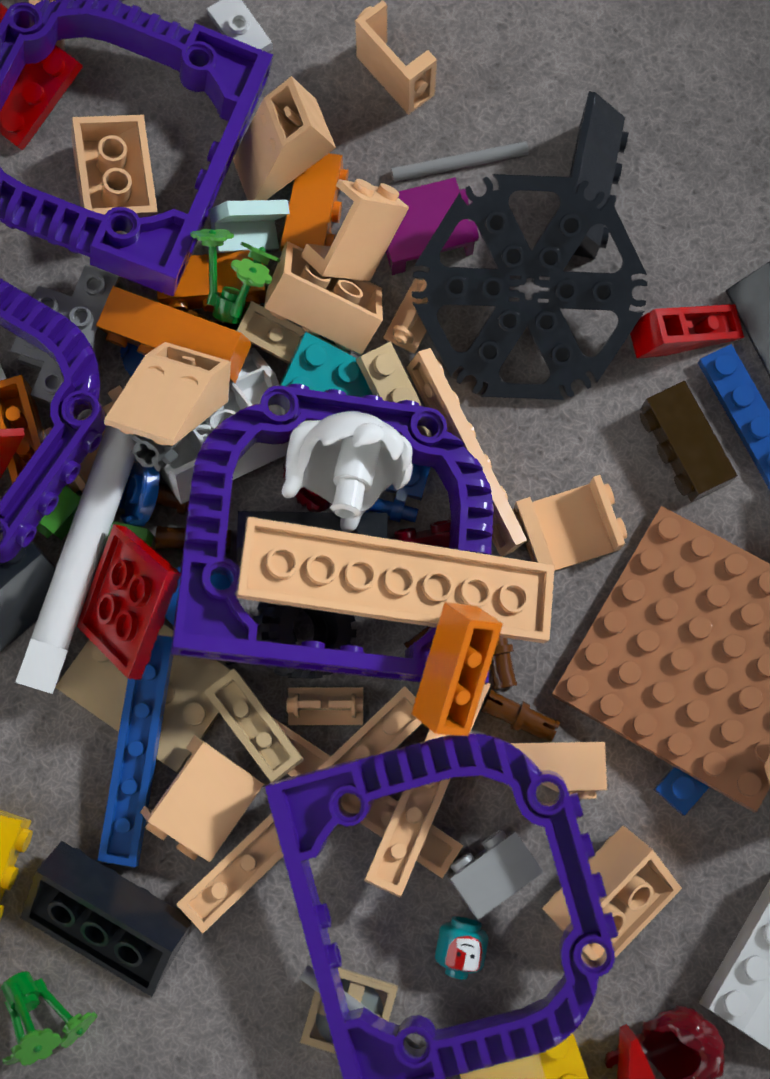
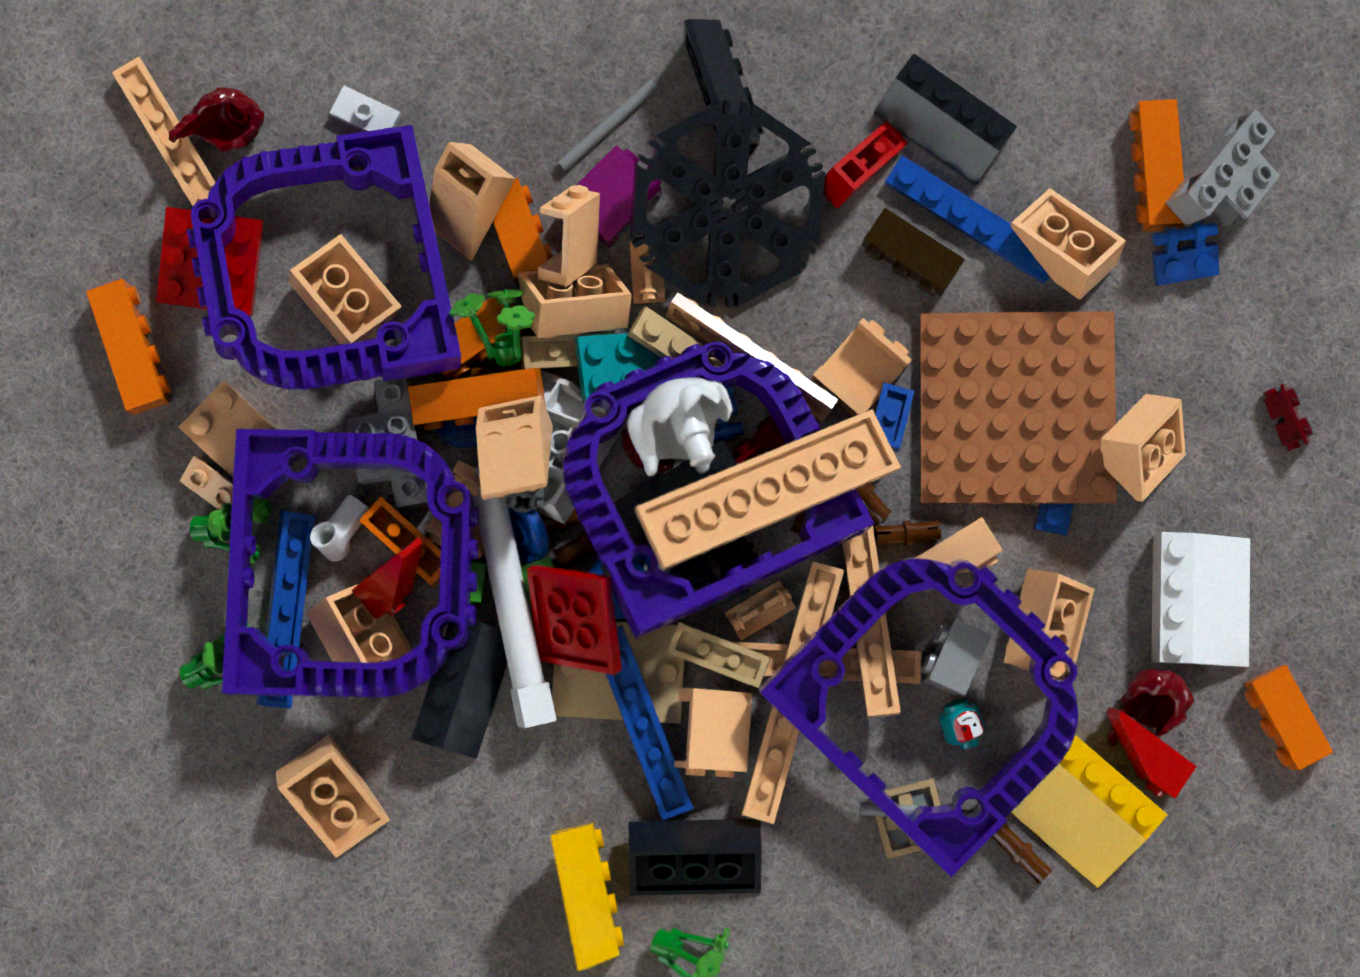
camera: 35 degrees left, 5 degrees up
(250, 222) = (480, 275): light aqua panel -> none
(407, 84) = (532, 92): light nougat panel -> none
(456, 669) = (849, 528): orange brick -> none
(575, 587) = (893, 412): none -> blue plate

